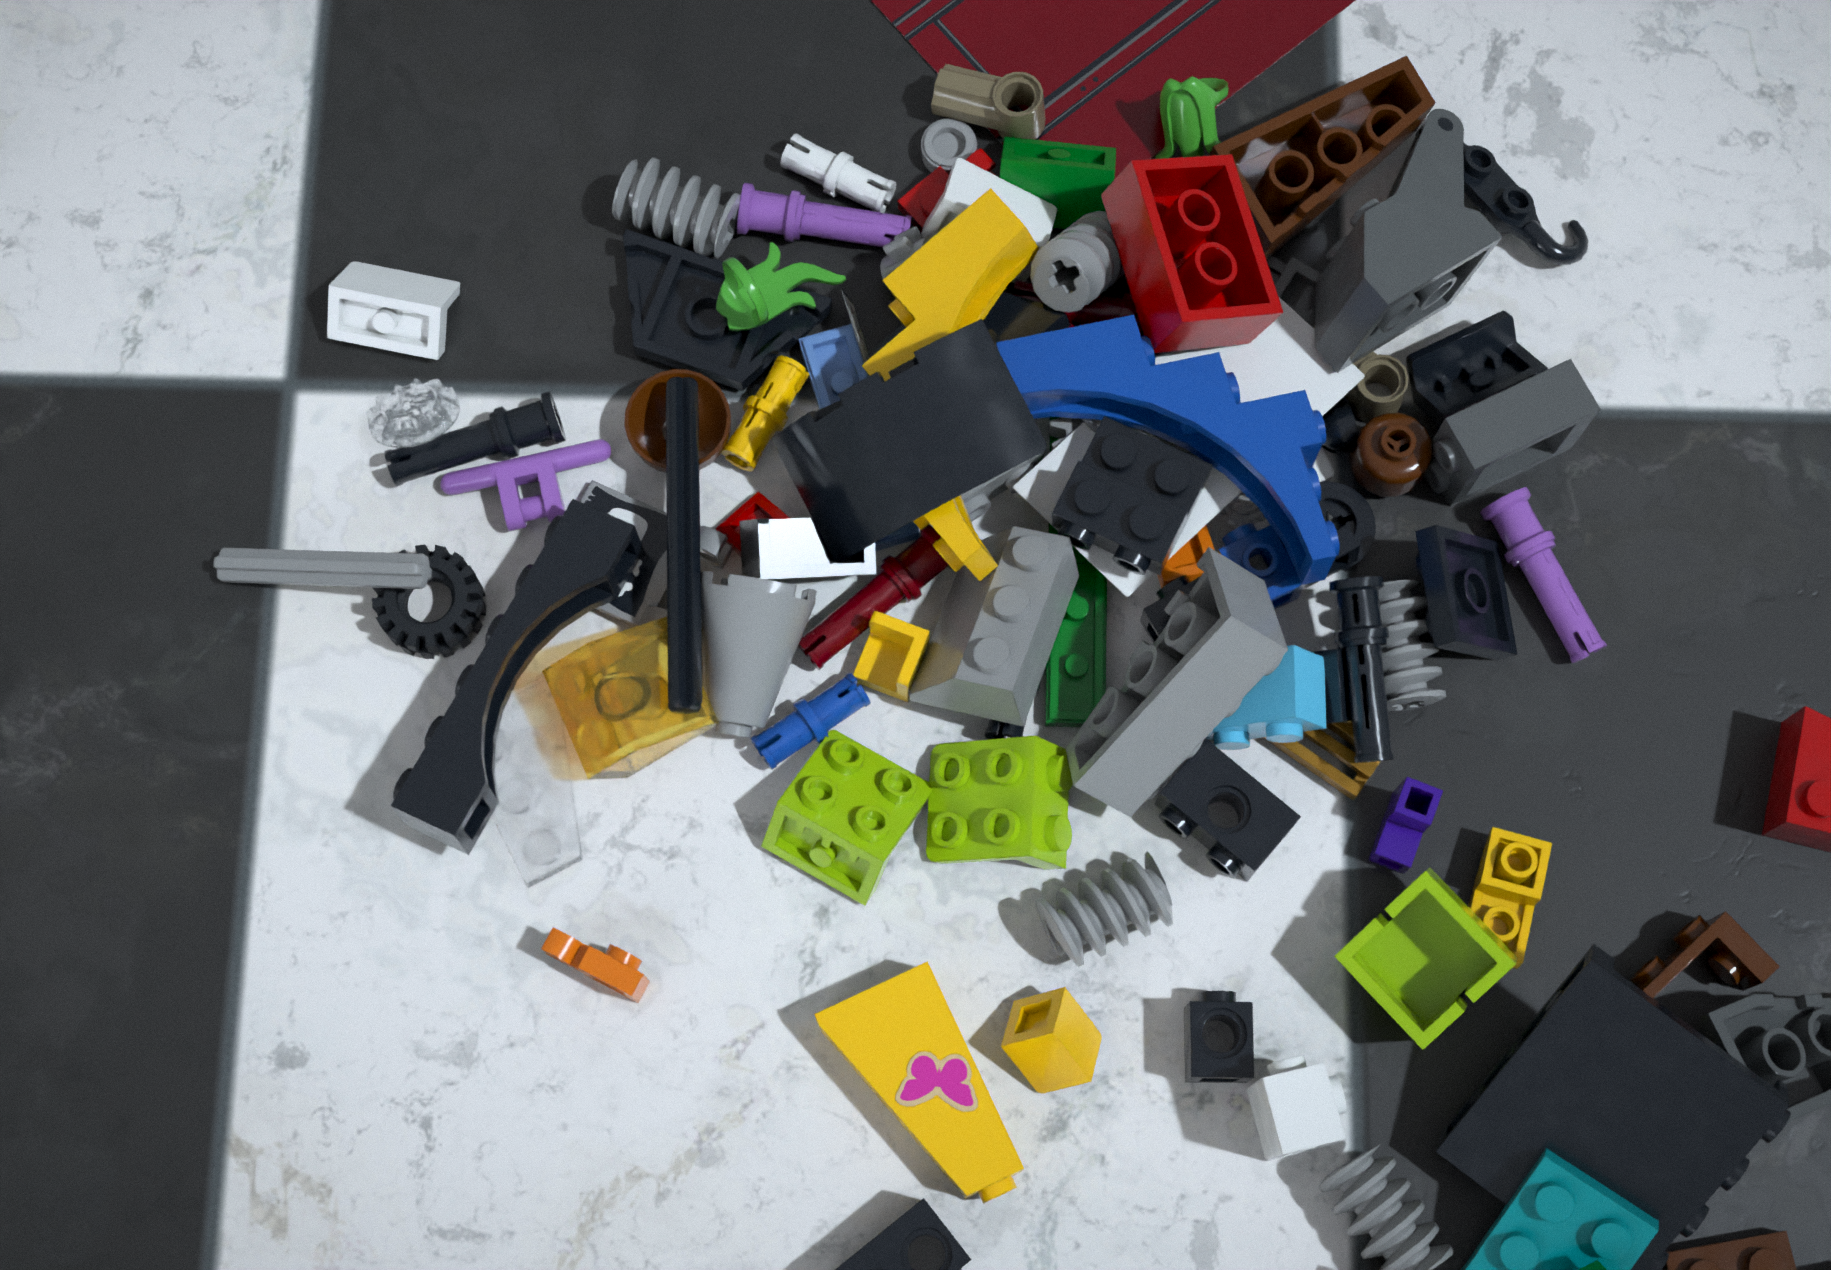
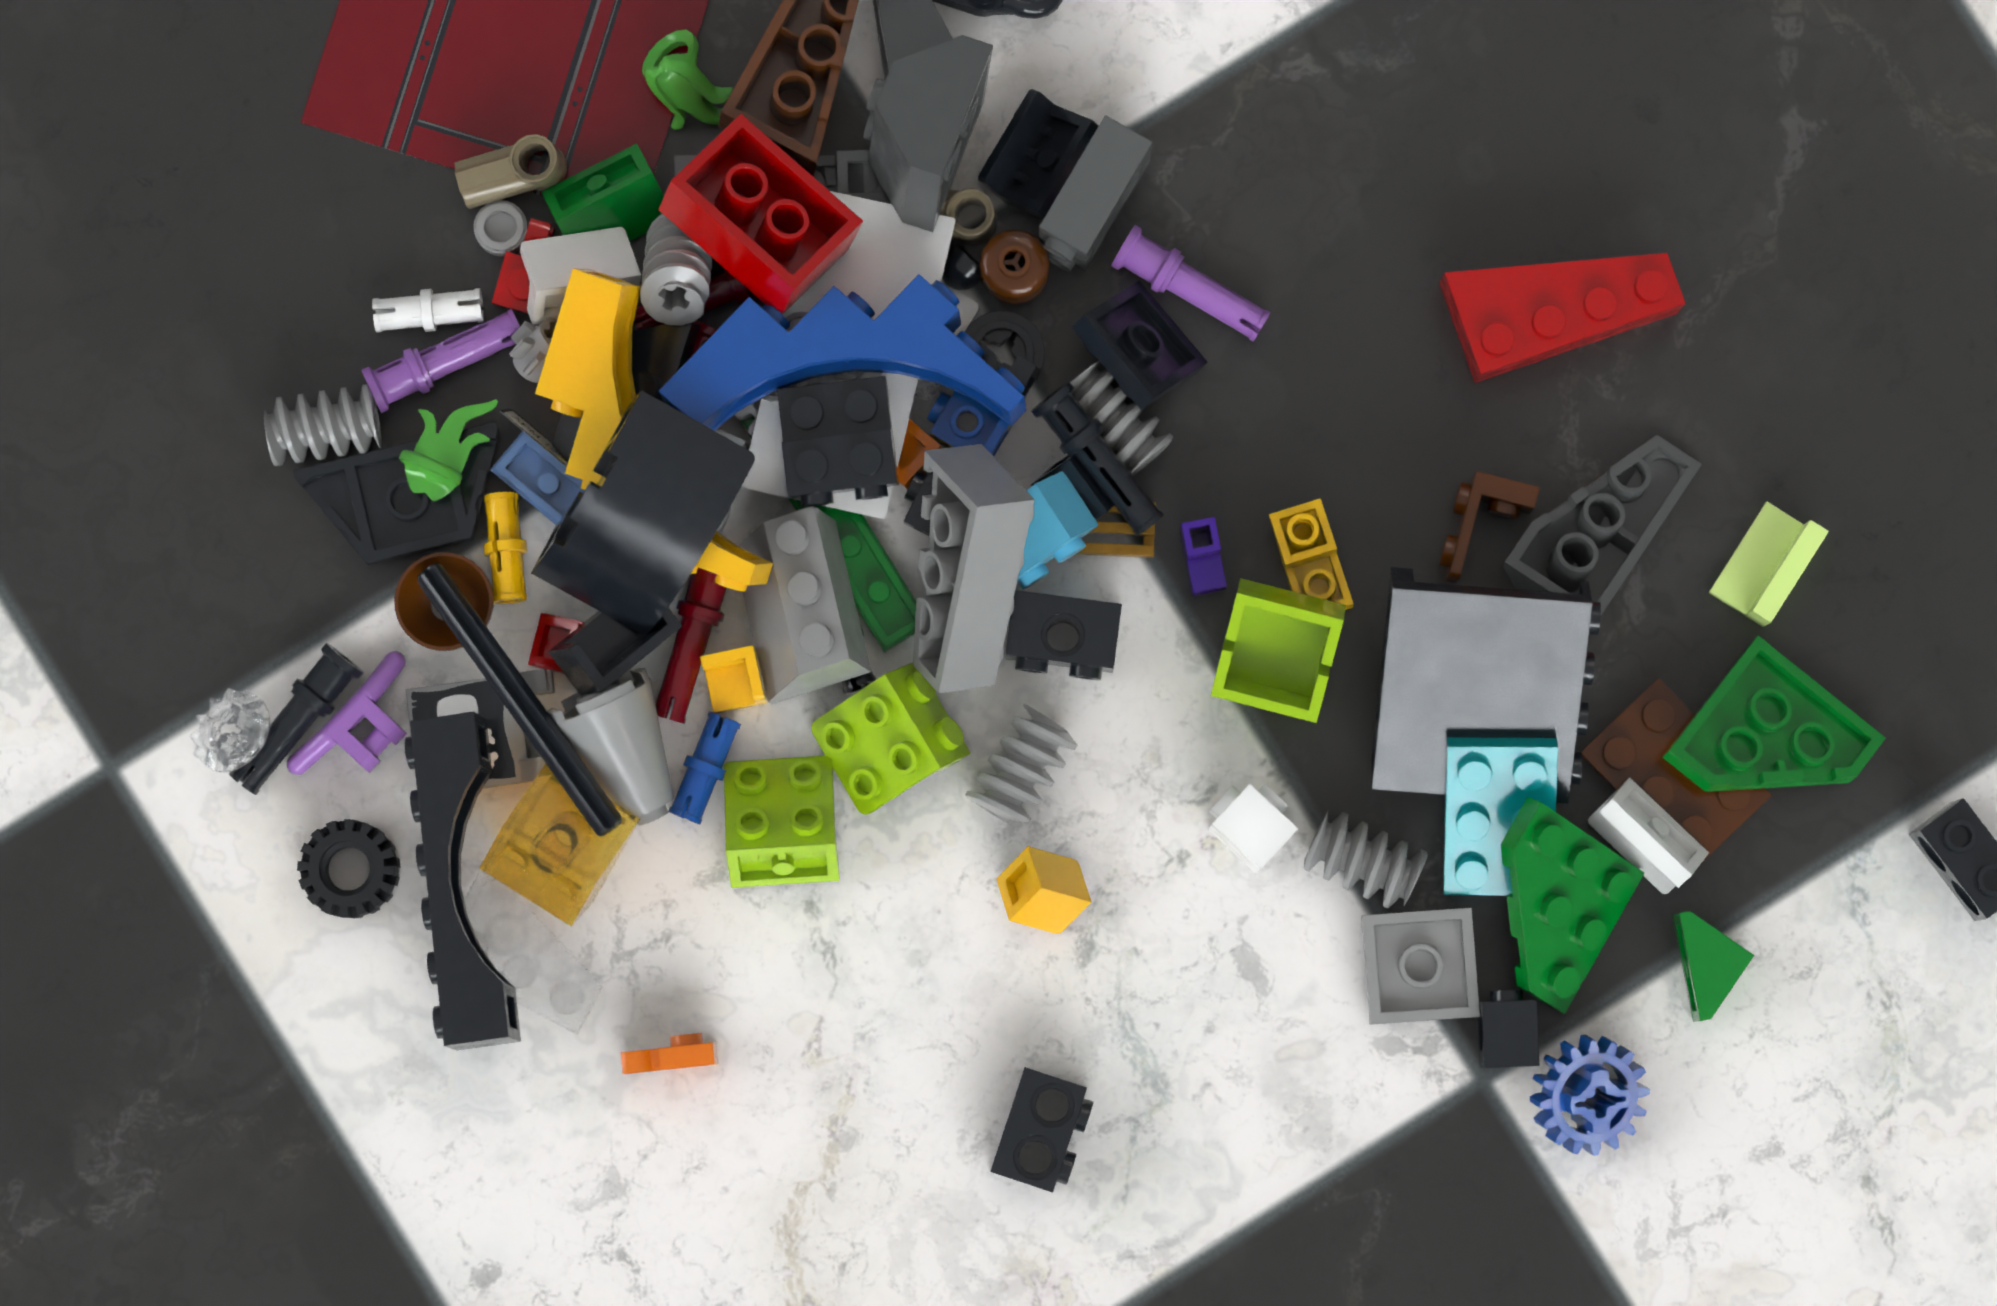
camera: 30 degrees left, 10 degrees up
(323, 568) = (251, 899): light grey axle -> none
(390, 309) = (149, 655): white panel -> none
(923, 1072) = (962, 975): yellow slope -> none
(1209, 1066) = (1164, 834): black brick -> none

